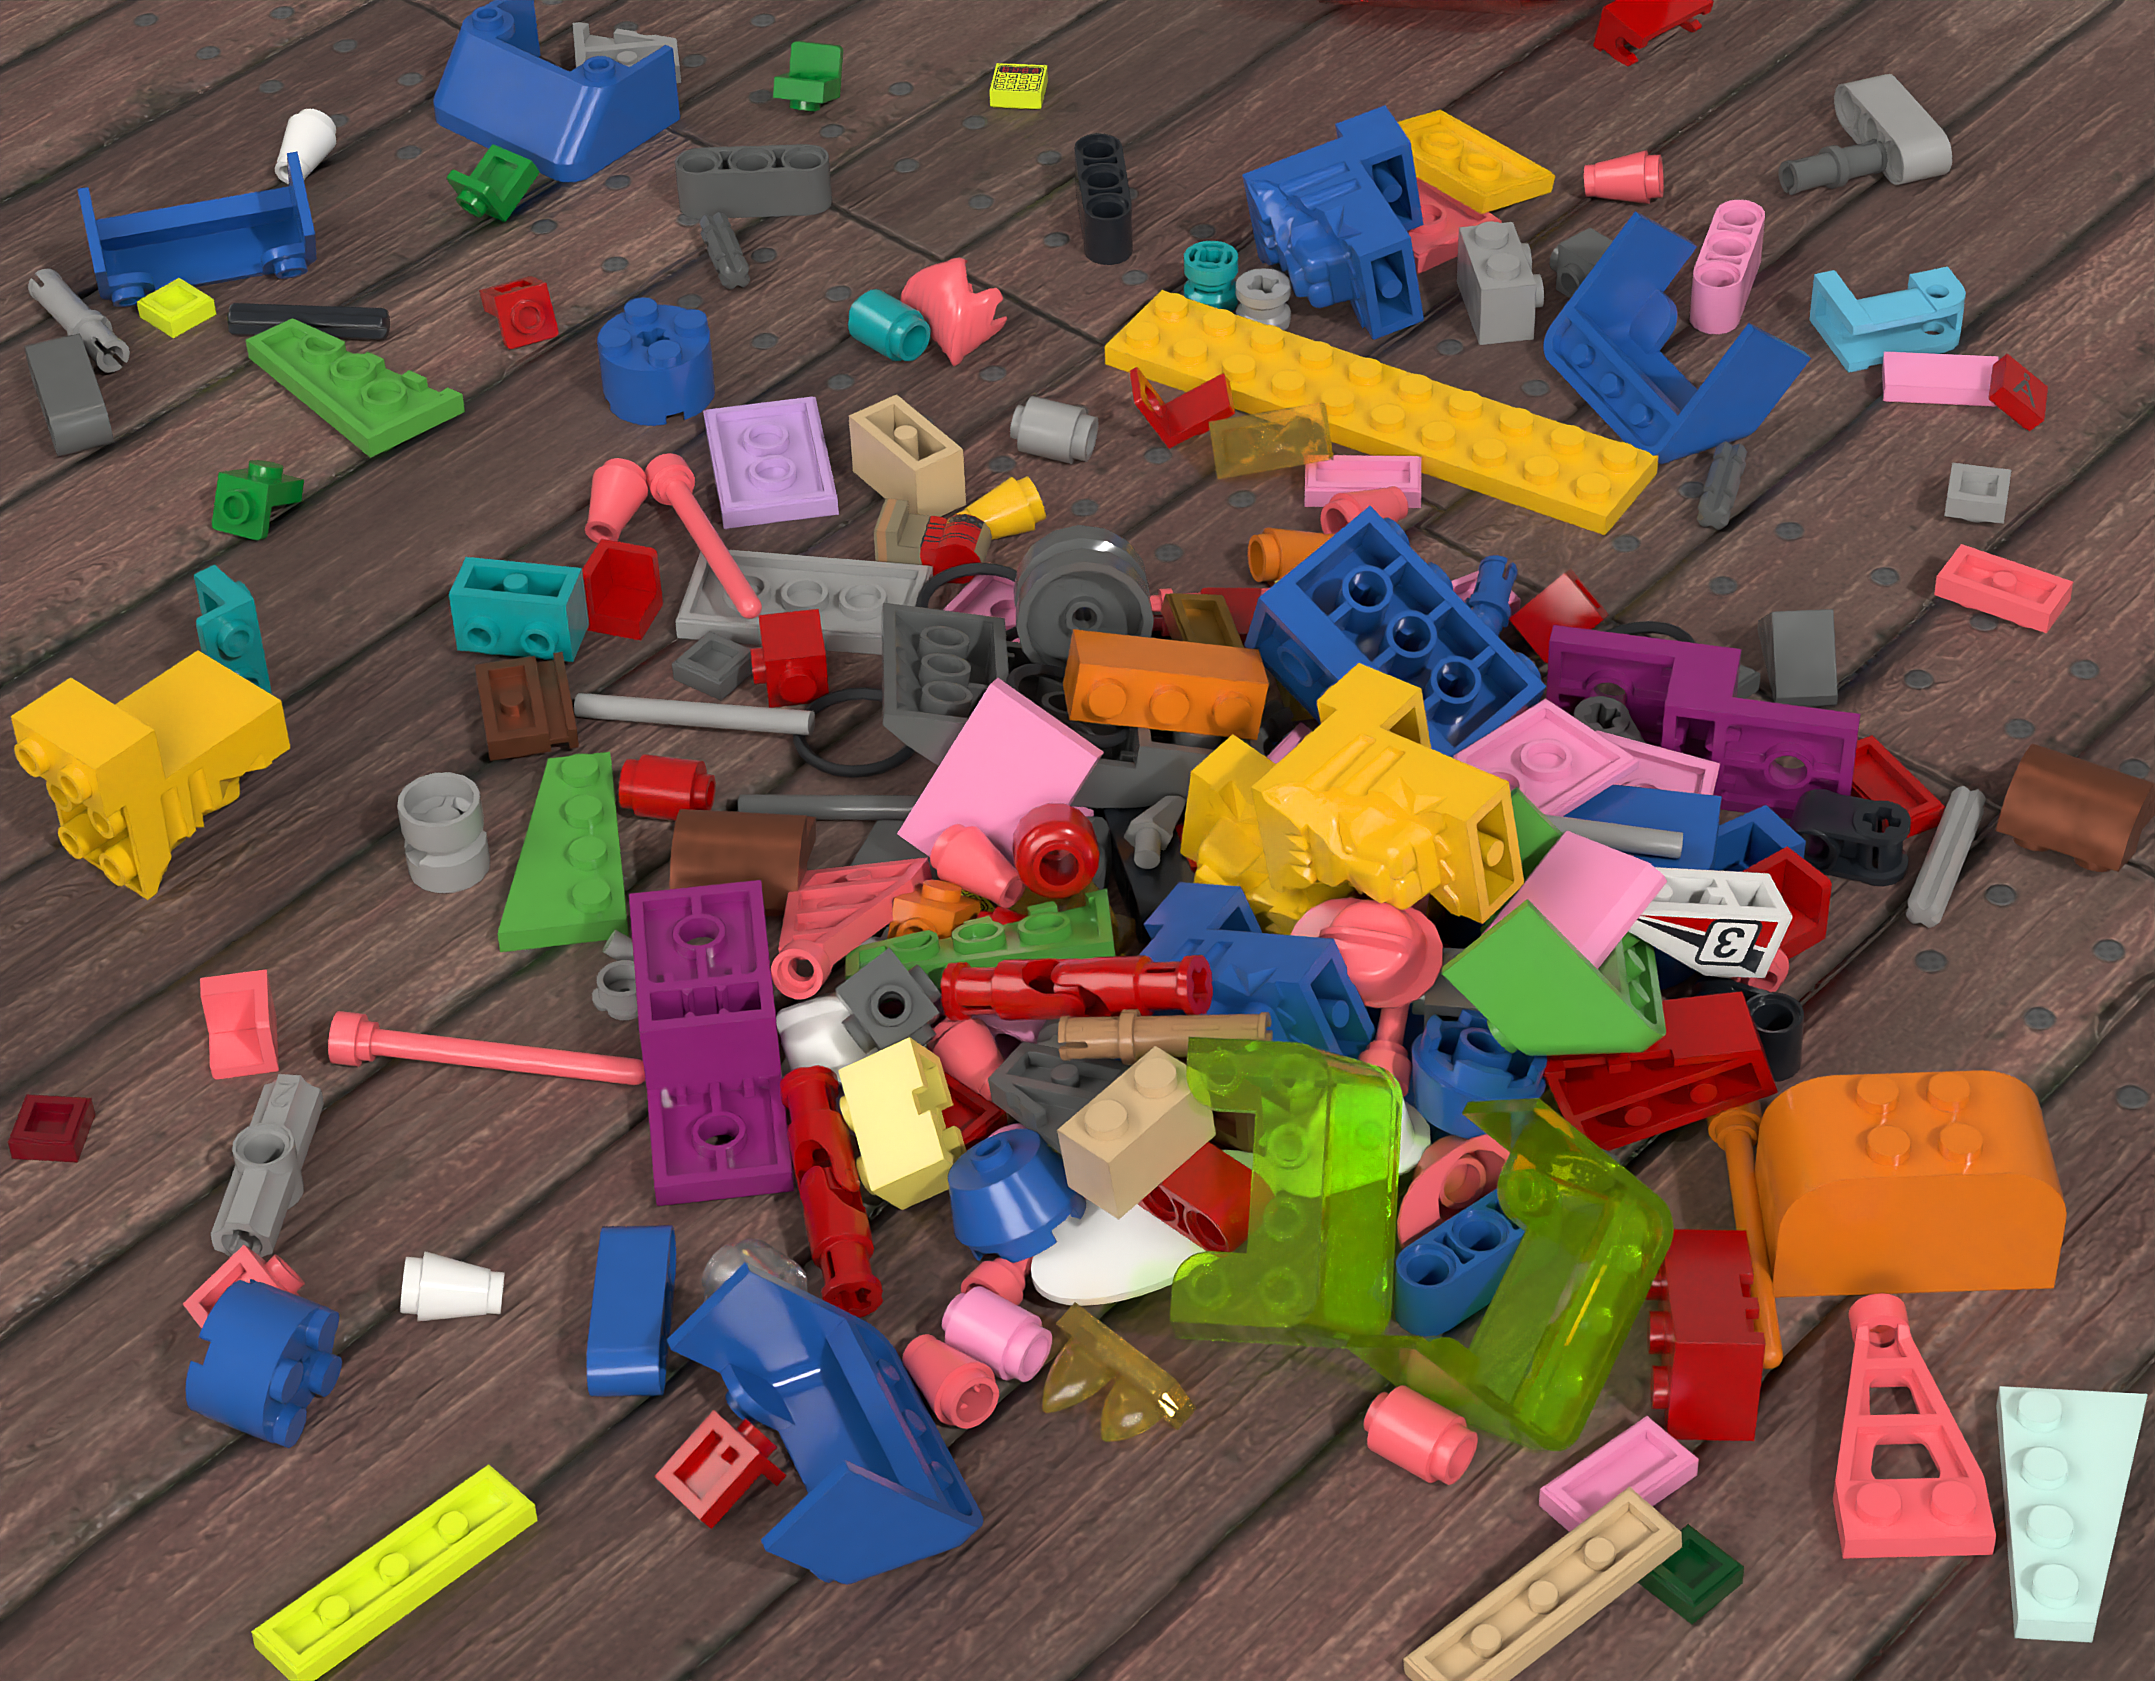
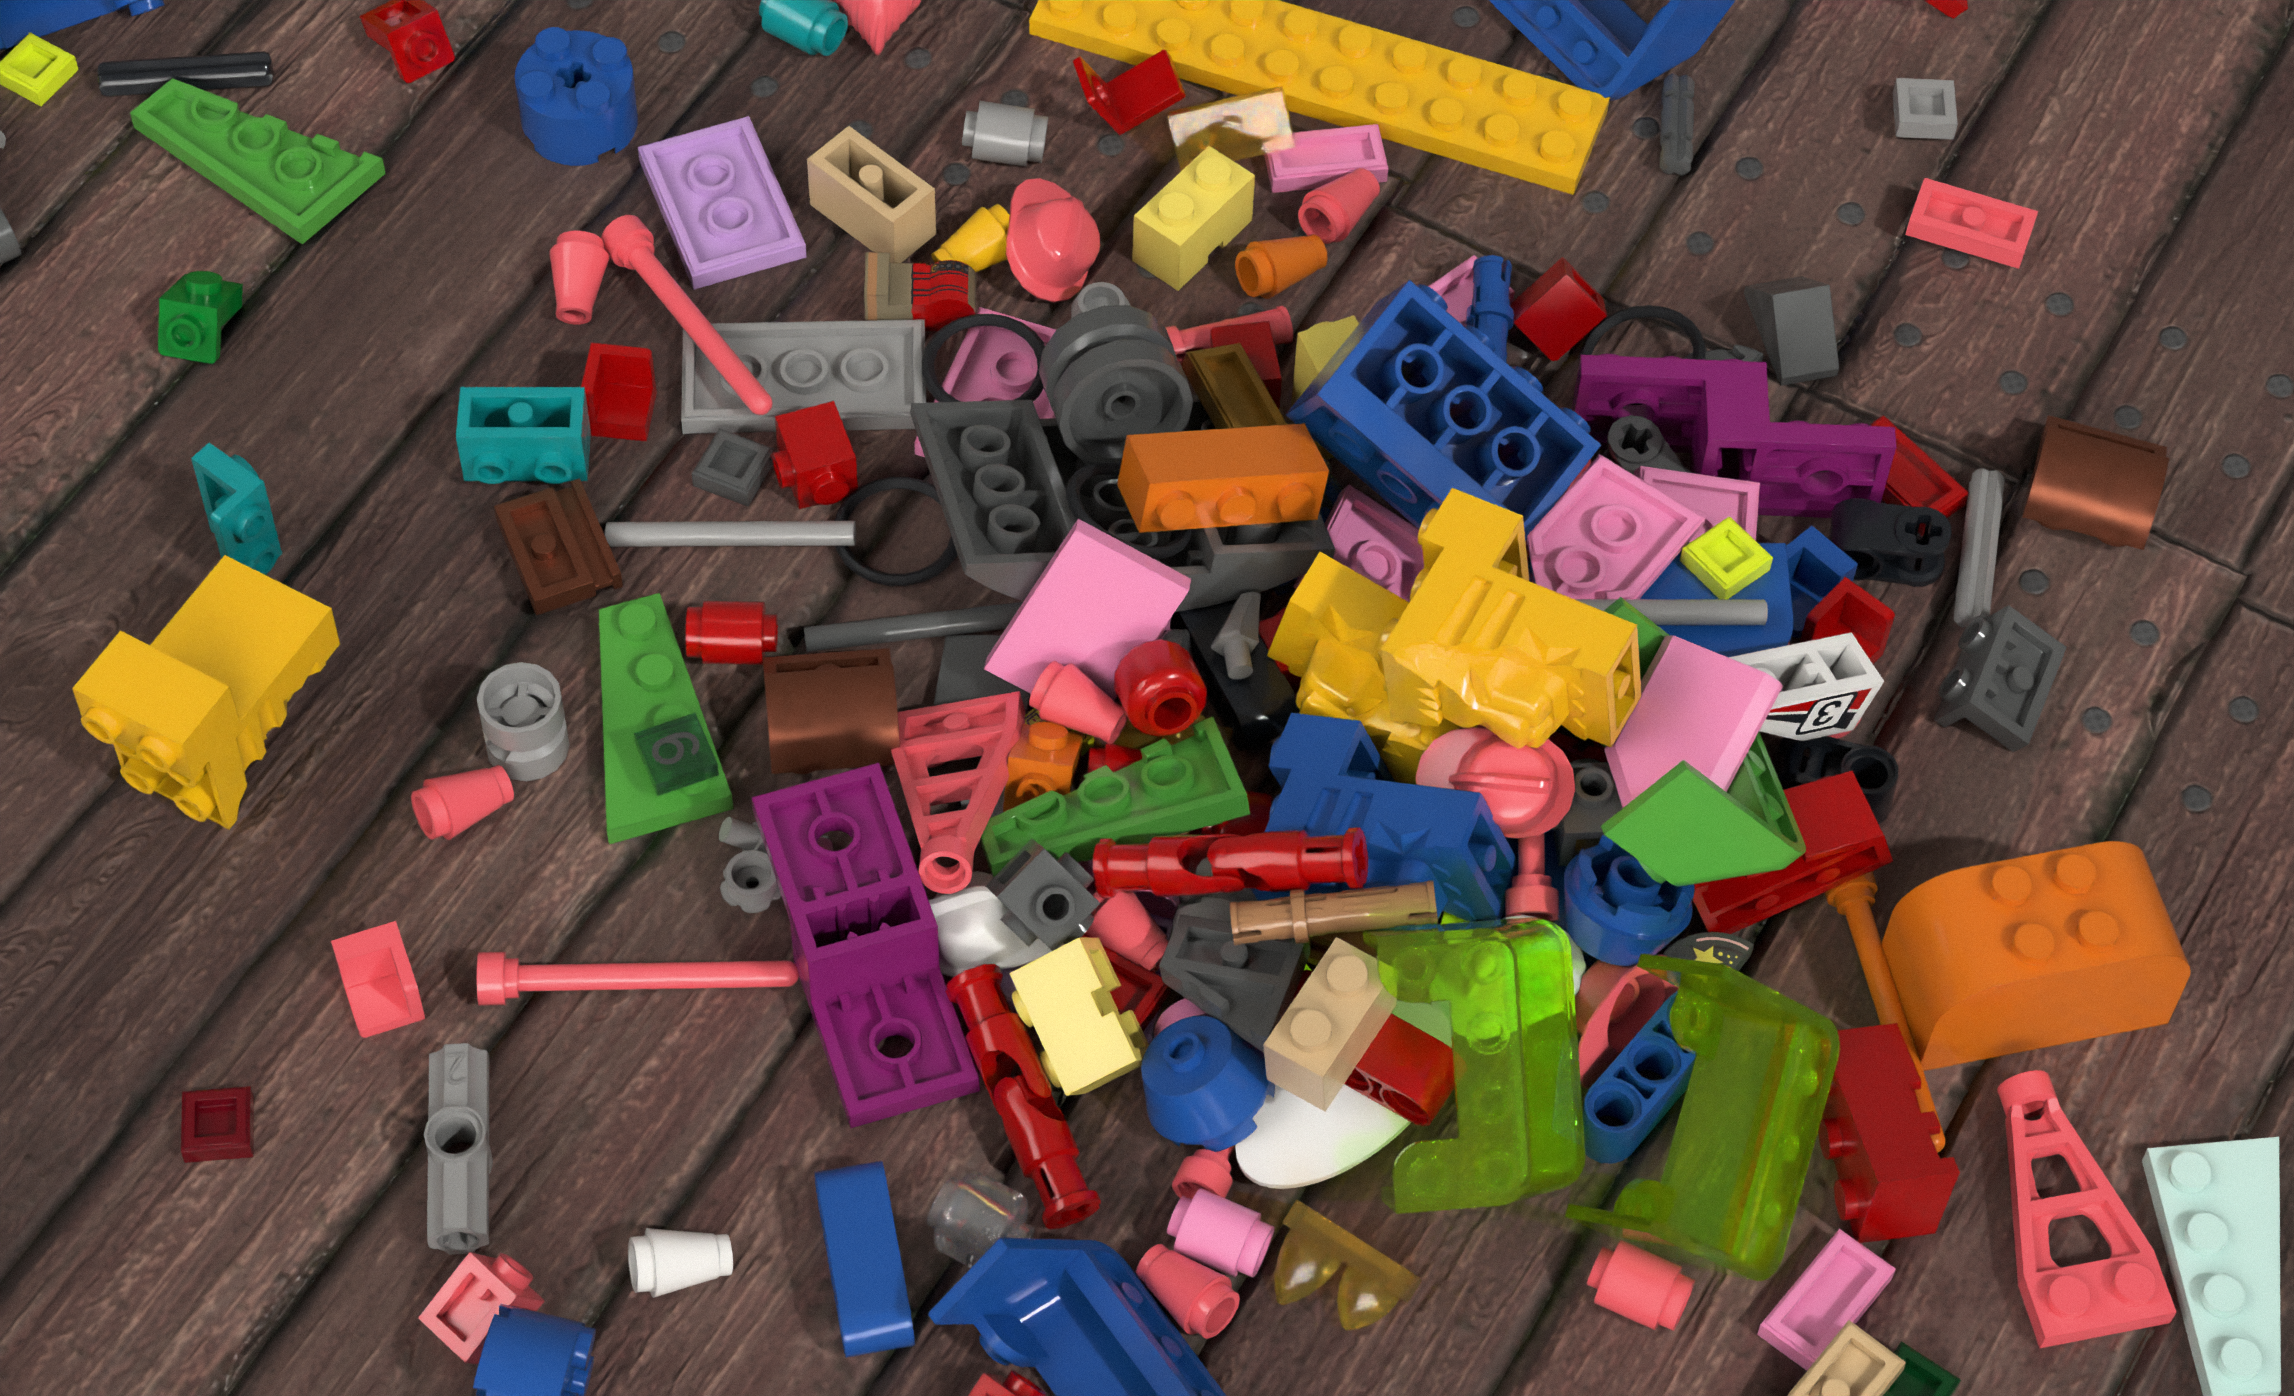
camera: 15 degrees left, 15 degrees up
(367, 893) = (460, 800): none -> coral cone
(579, 871) = (676, 754): none -> clear green tile
(1066, 498) = (1050, 240): none -> coral piece
(1214, 506) = (1192, 217): none -> light yellow brick
(1654, 798) = (1726, 559): none -> neon yellow tile
(1944, 963) = (2001, 677): none -> dark grey bracket

